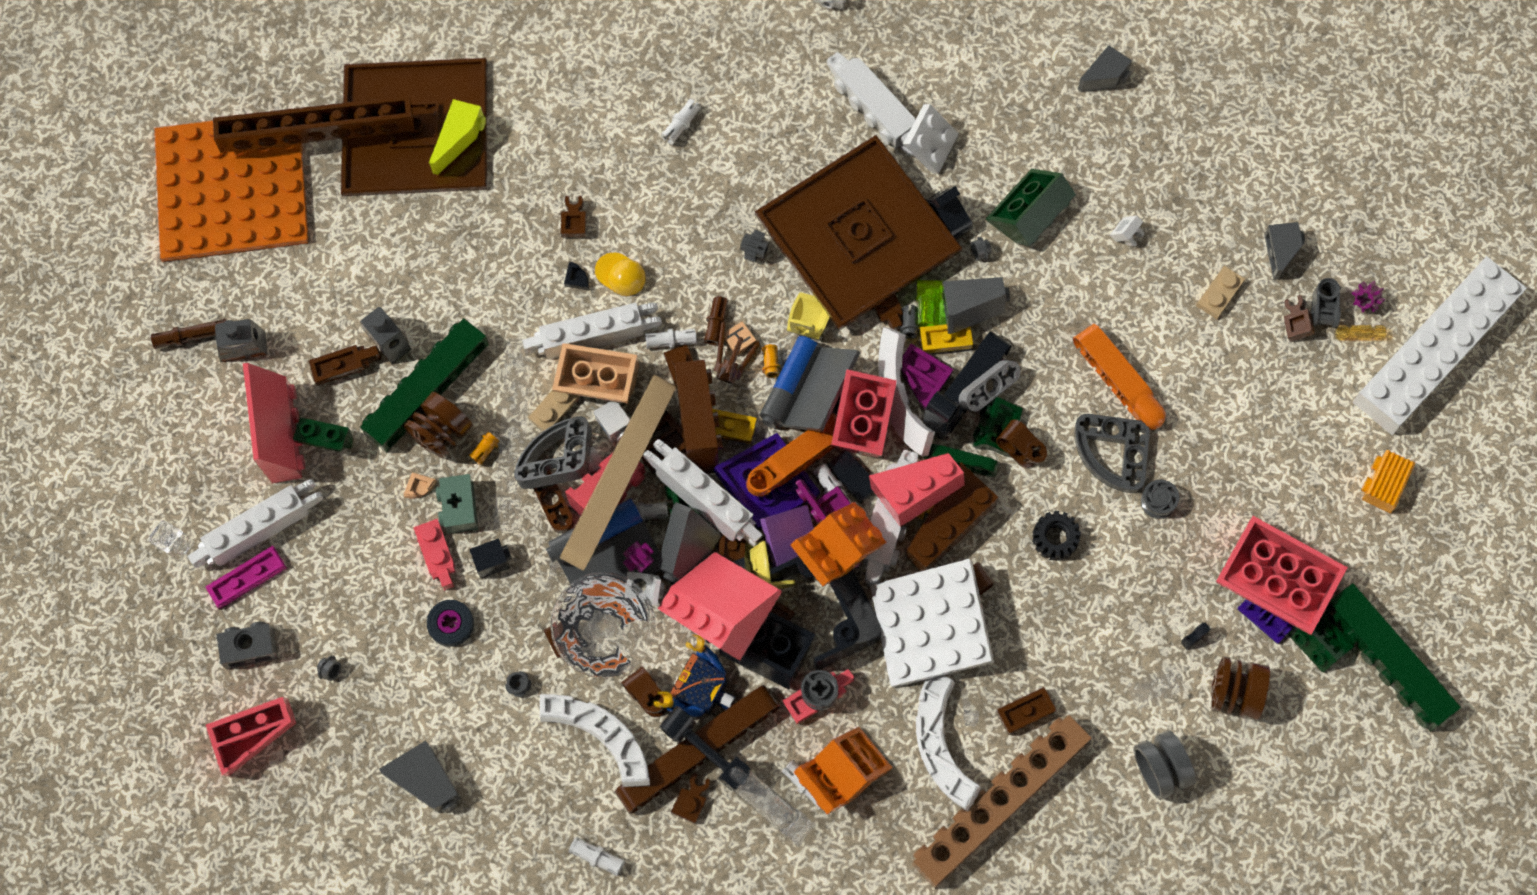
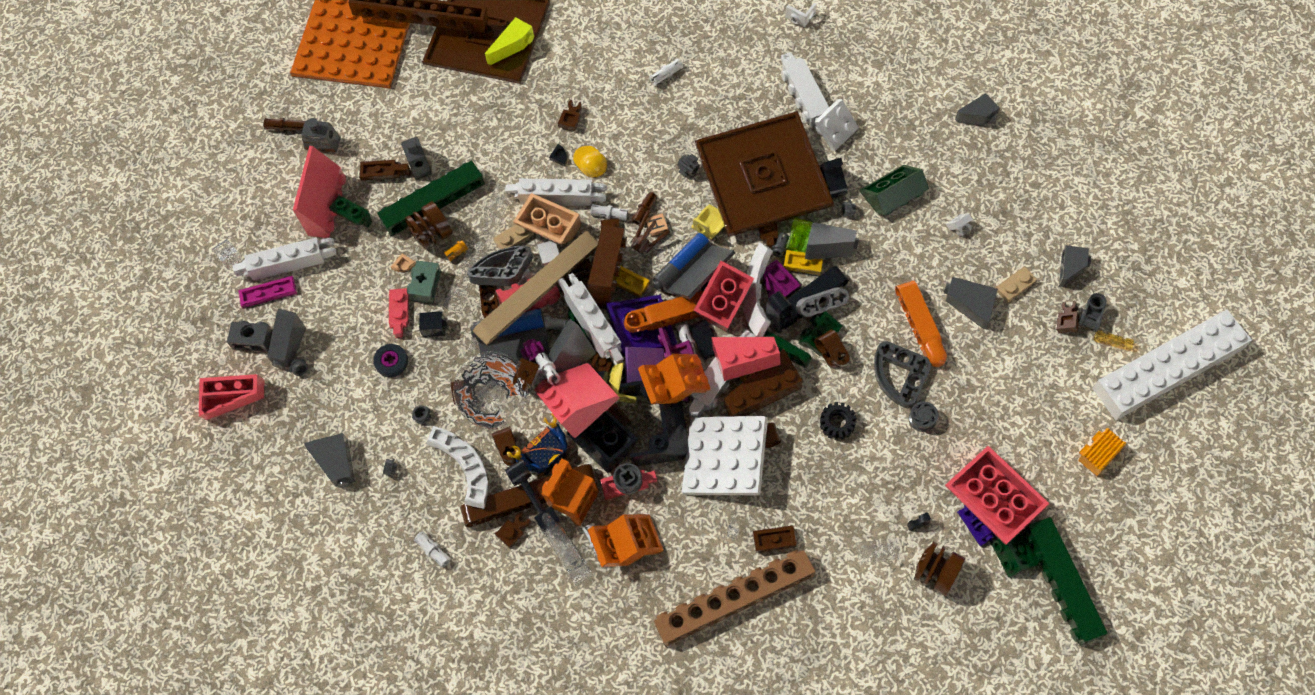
camera: 20 degrees right, 5 degrees down
(299, 636) = (285, 338): none -> dark grey slope
(502, 766) = (390, 467): none -> dark grey plate
(646, 591) = (526, 371): none -> reddish brown hinge
(669, 577) = (547, 368): none -> white pin
(753, 730) = (570, 492): none -> orange bracket
(771, 362) = (673, 246): light orange pin -> none
(933, 743) = (698, 543): white tile -> none
(1164, 764) = (863, 607): dark grey wheel -> none
(1174, 329) = (971, 299): none -> dark grey slope
(1363, 300) = (1127, 315): magenta gear -> none

